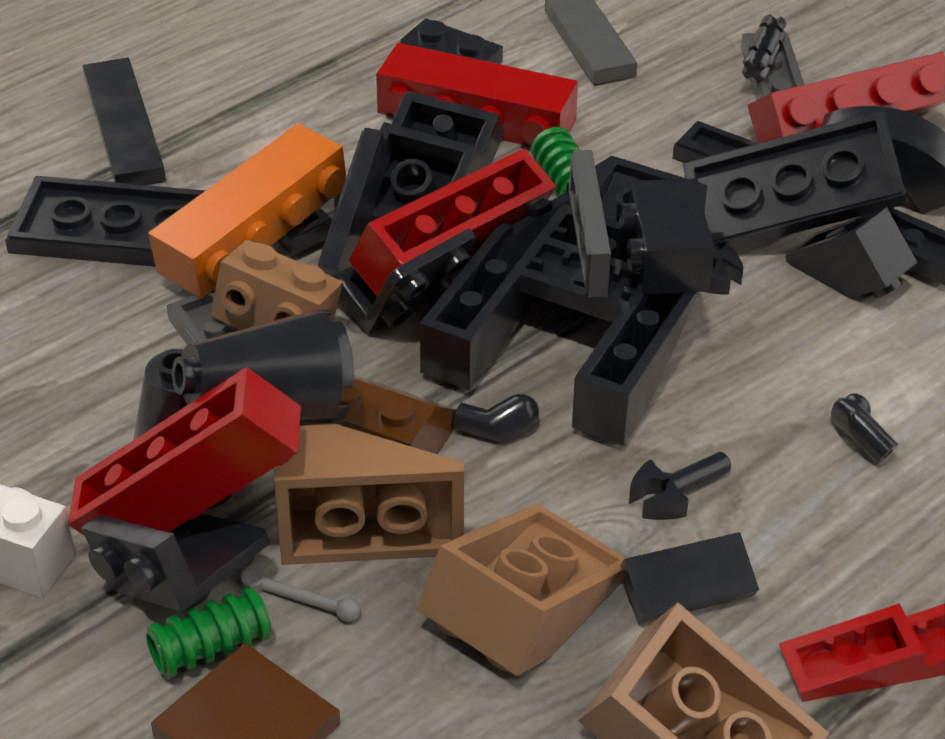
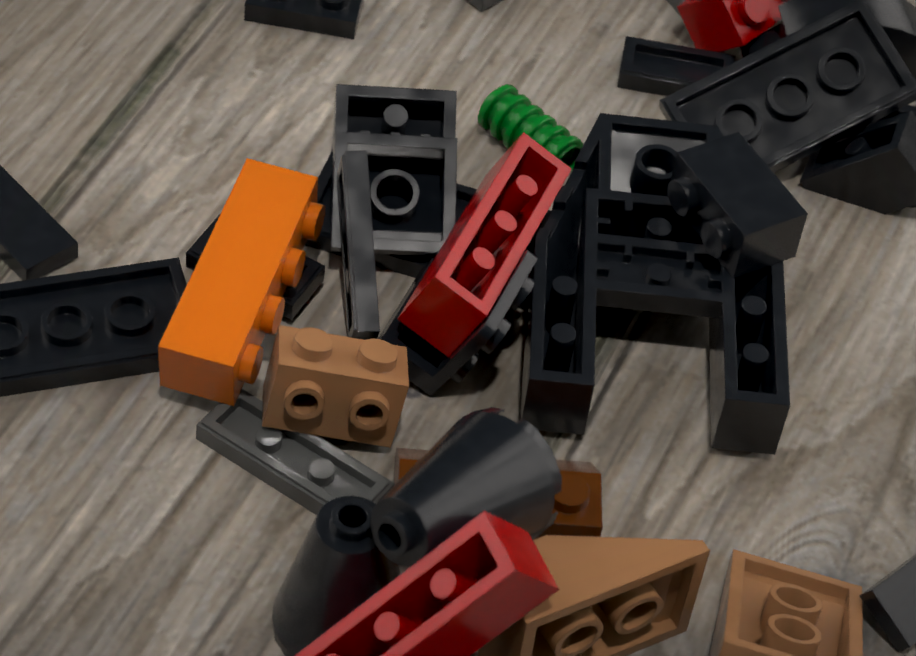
camera: 30 degrees left, 5 degrees up
(499, 422) = (643, 461): black arm -> none
(522, 98) = (315, 53): red brick -> none
(589, 224) = (648, 210): dark grey tile -> none
(670, 487) = (849, 484): black bar -> none

